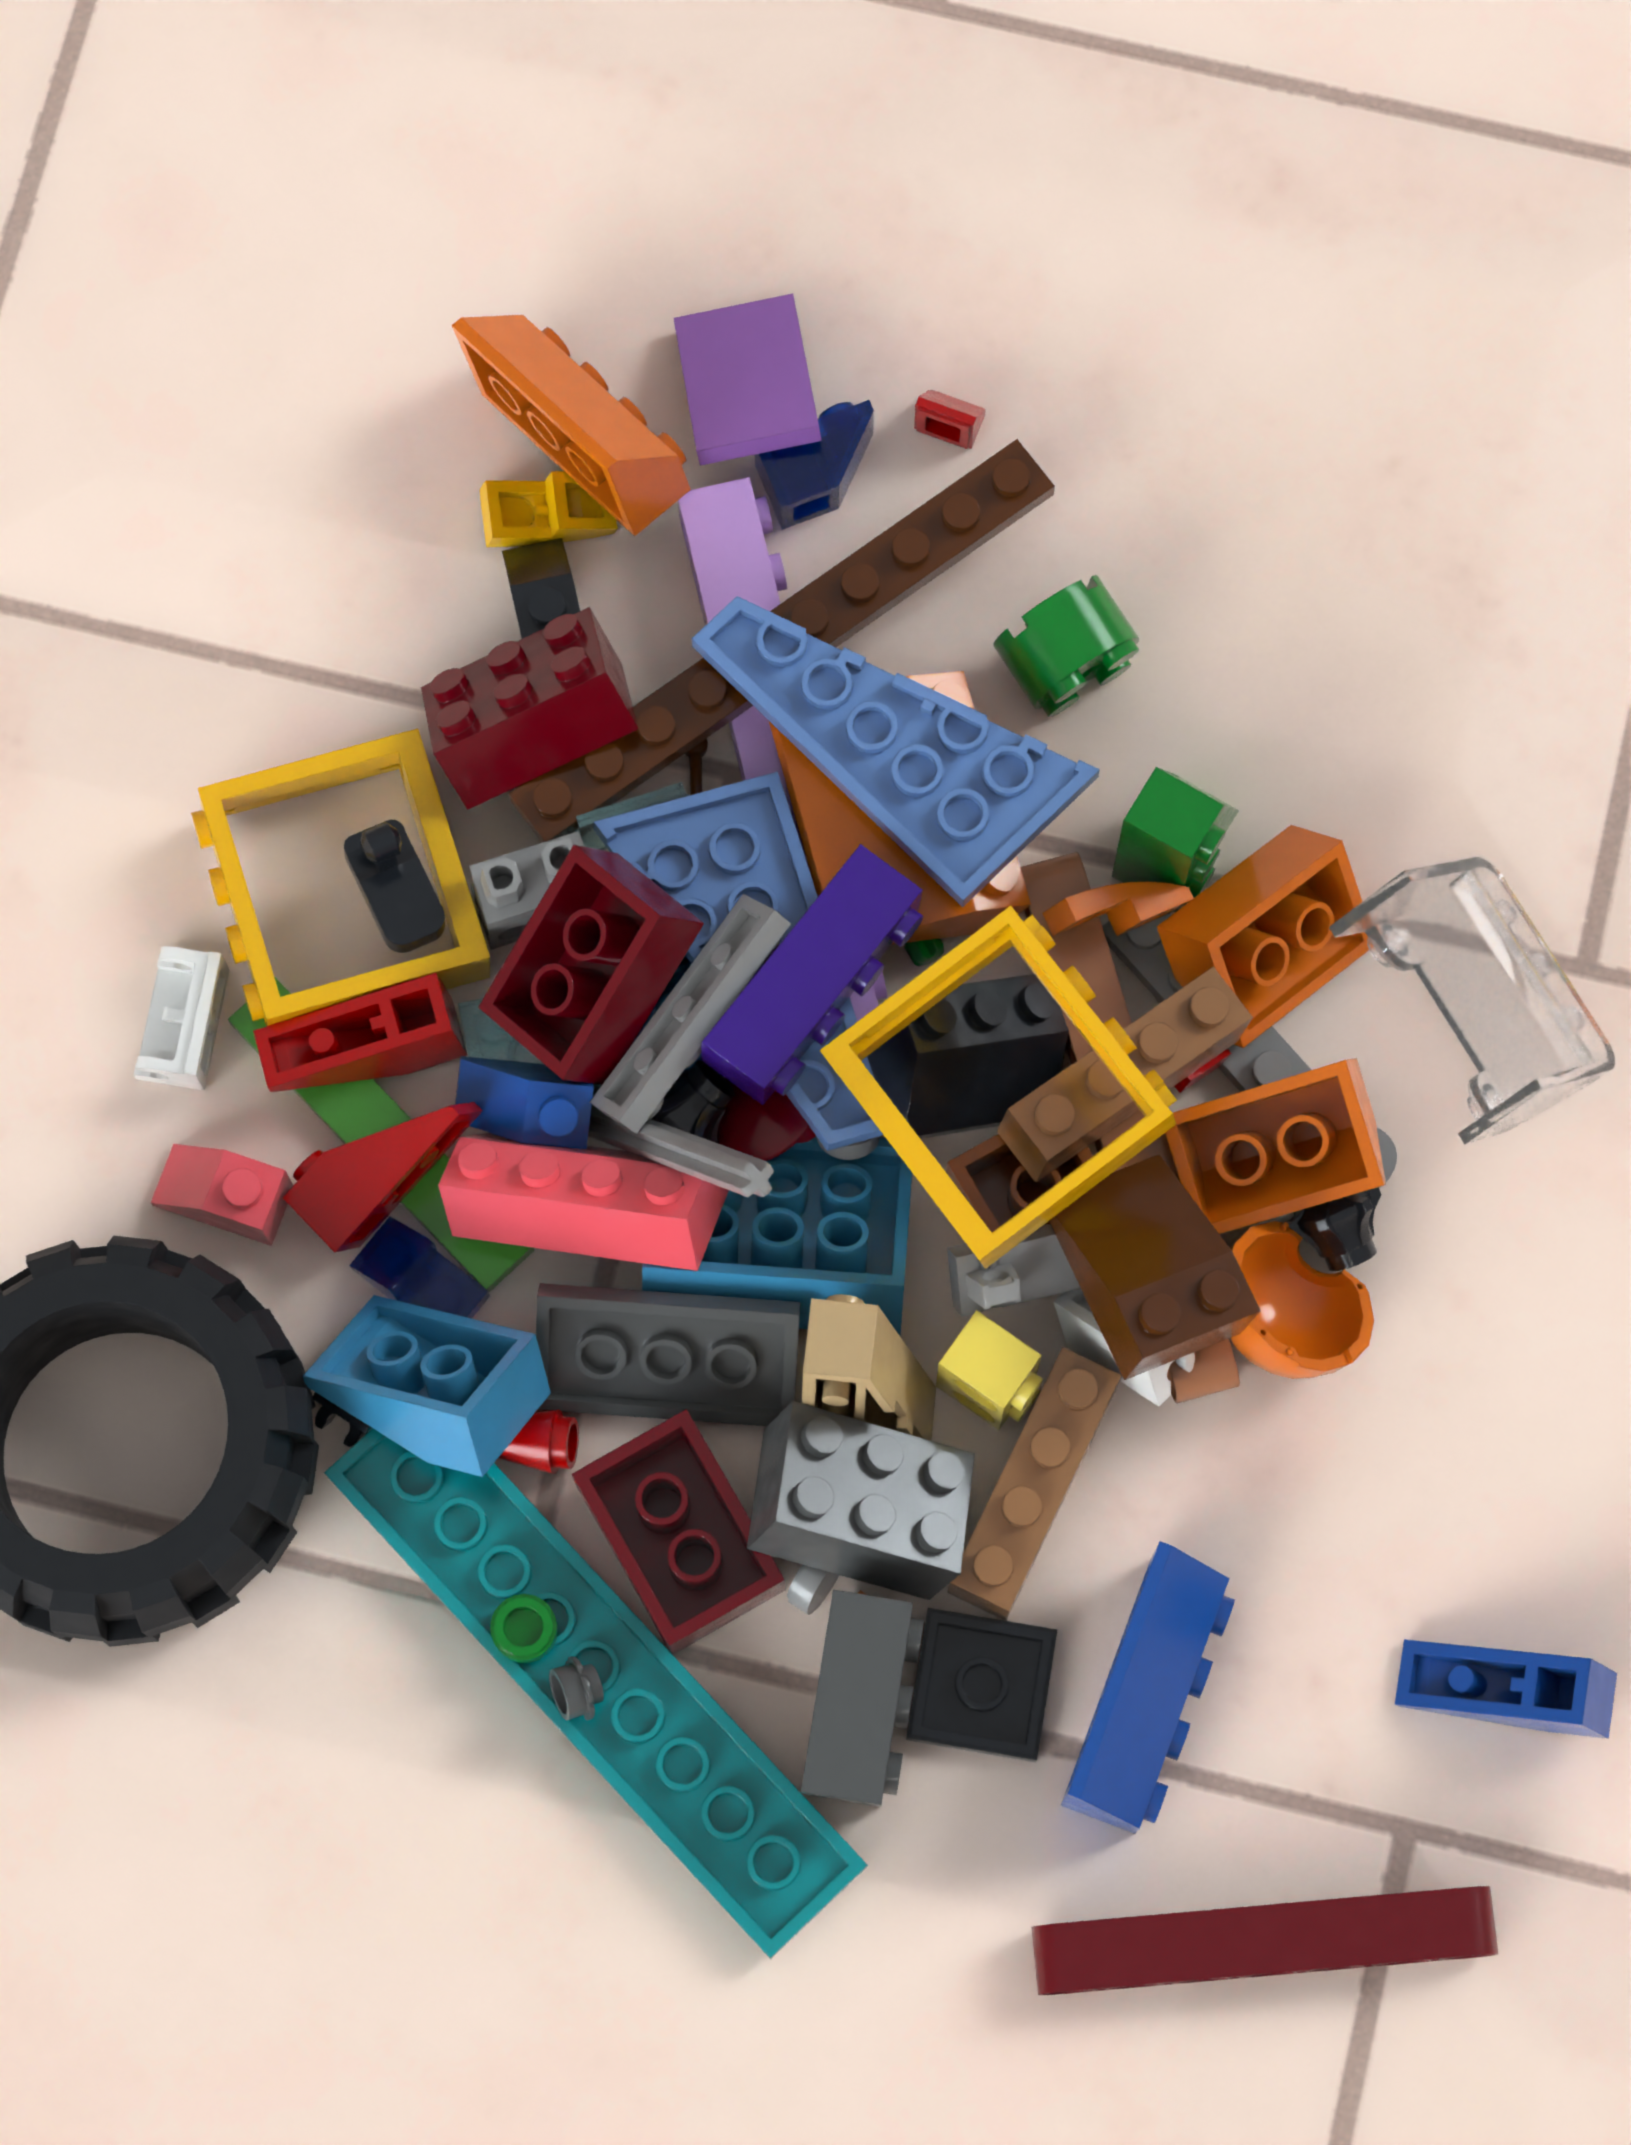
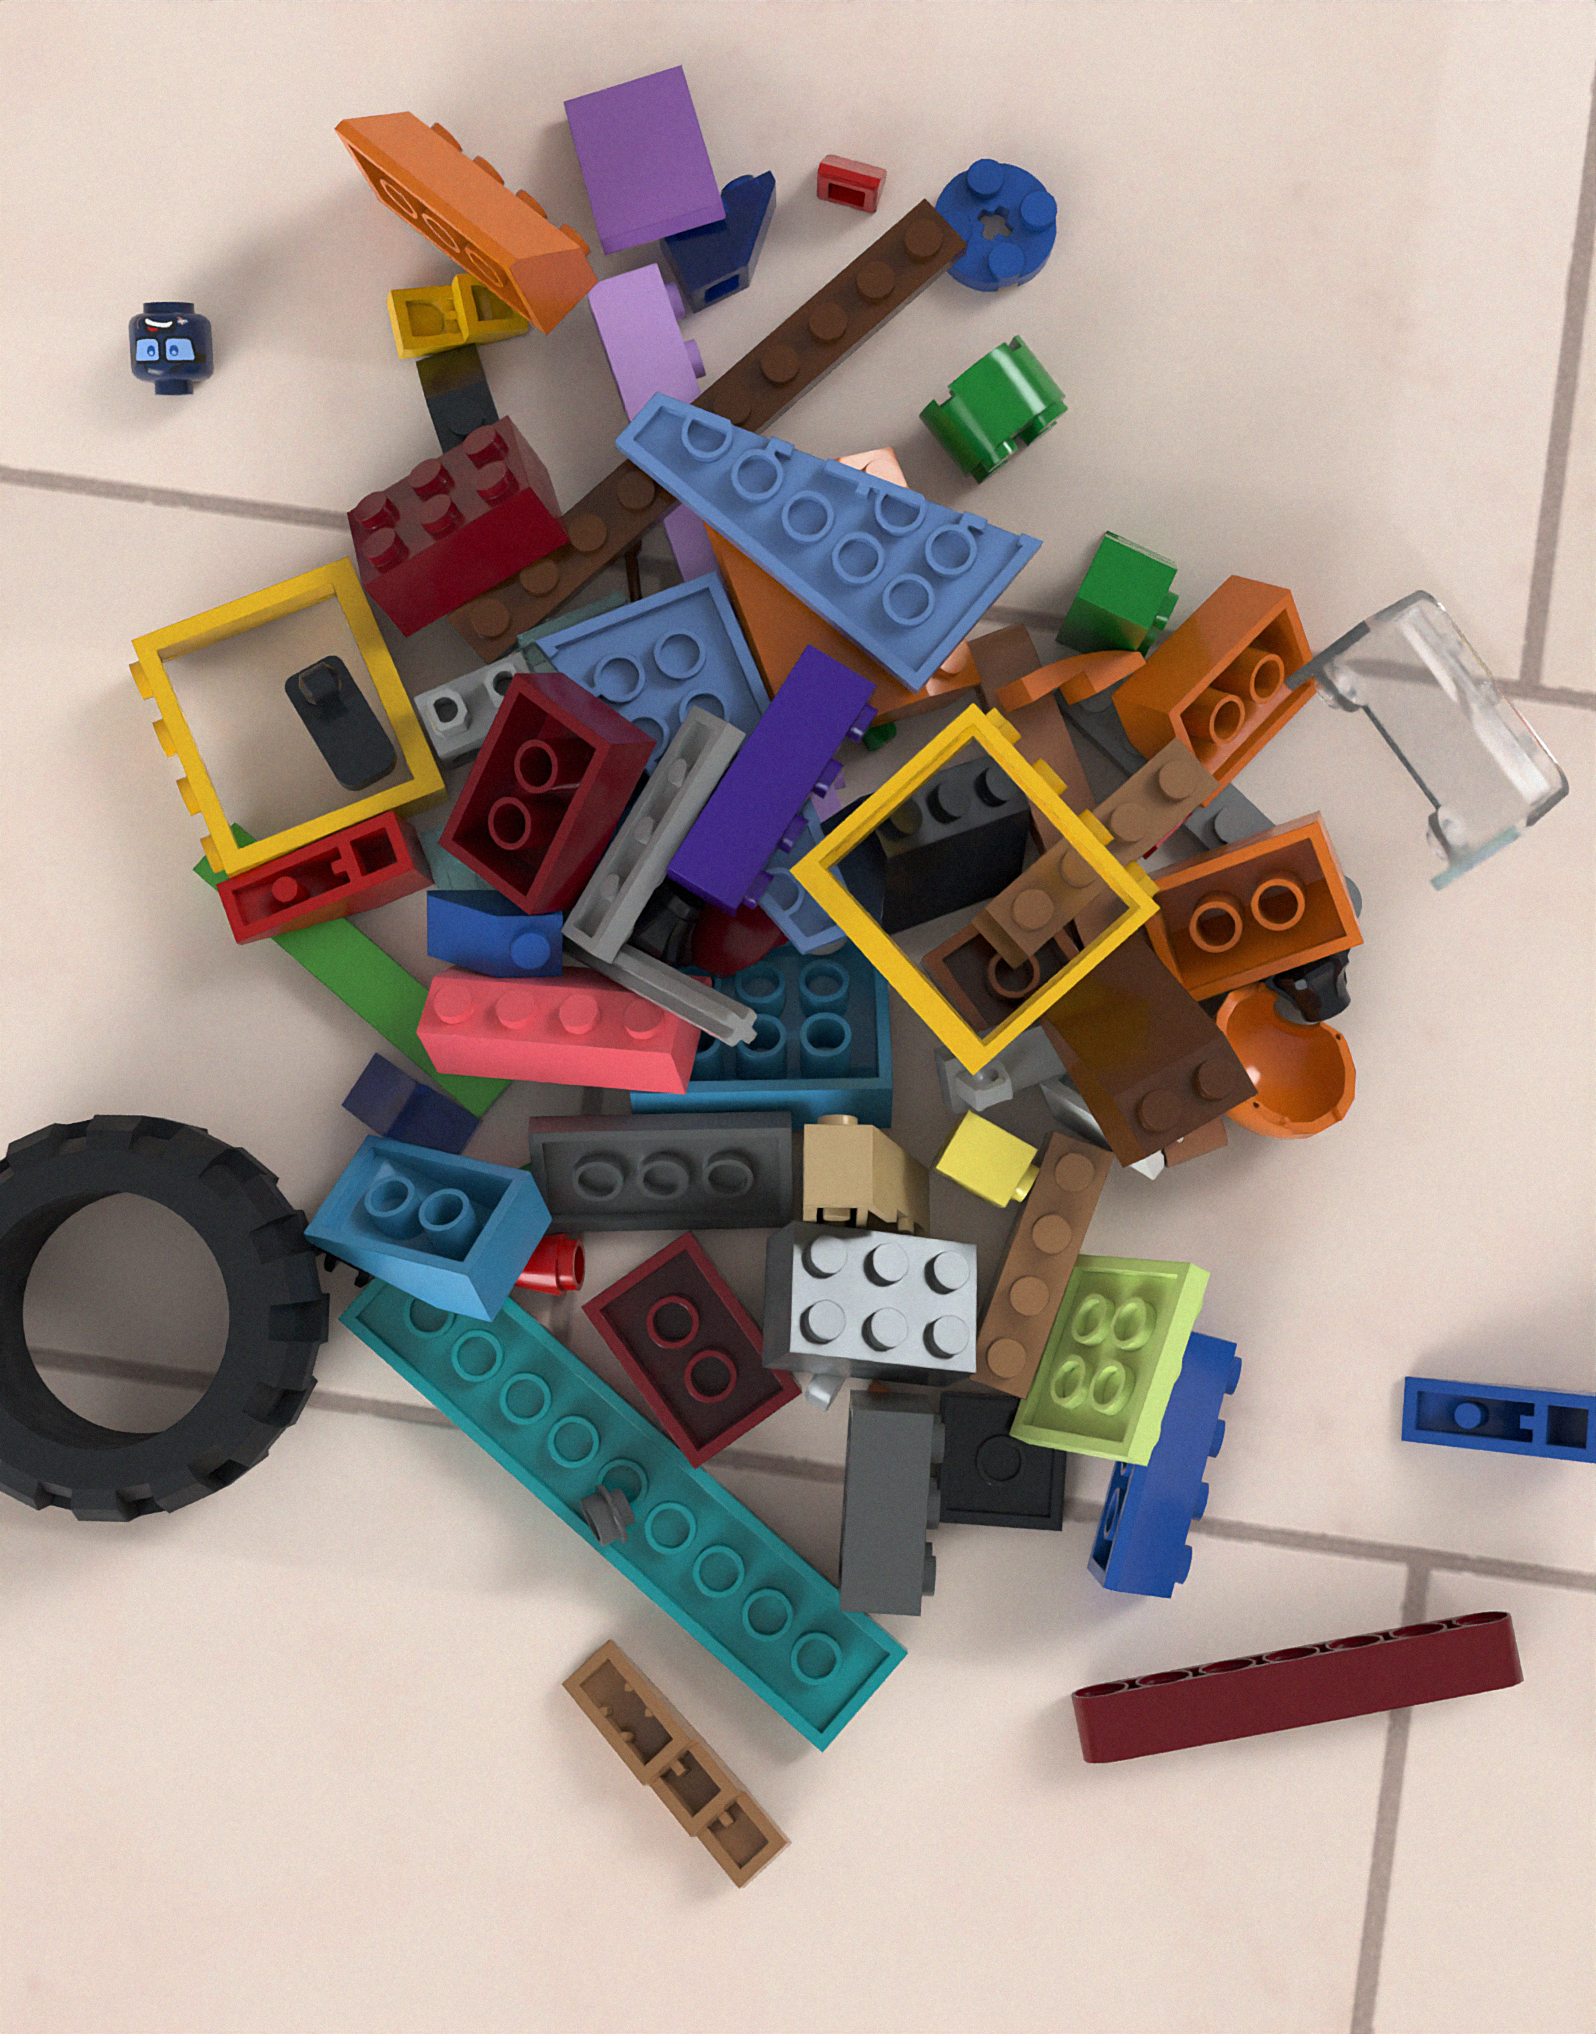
camera: 10 degrees left, 10 degrees up
(183, 1018) = (149, 872): white hinge -> none
(224, 1191) = (208, 1045): coral slope -> none
(265, 516) = (171, 347): none -> dark blue head
(358, 1184) = (340, 1029): red slope -> none
(524, 1628) = (550, 1457): green tile -> none
(620, 1959) = (676, 1763): none -> medium nougat slope
(1096, 1569) = (1112, 1357): none -> yellowish green plate
(1121, 462) = (1029, 213): none -> blue plate

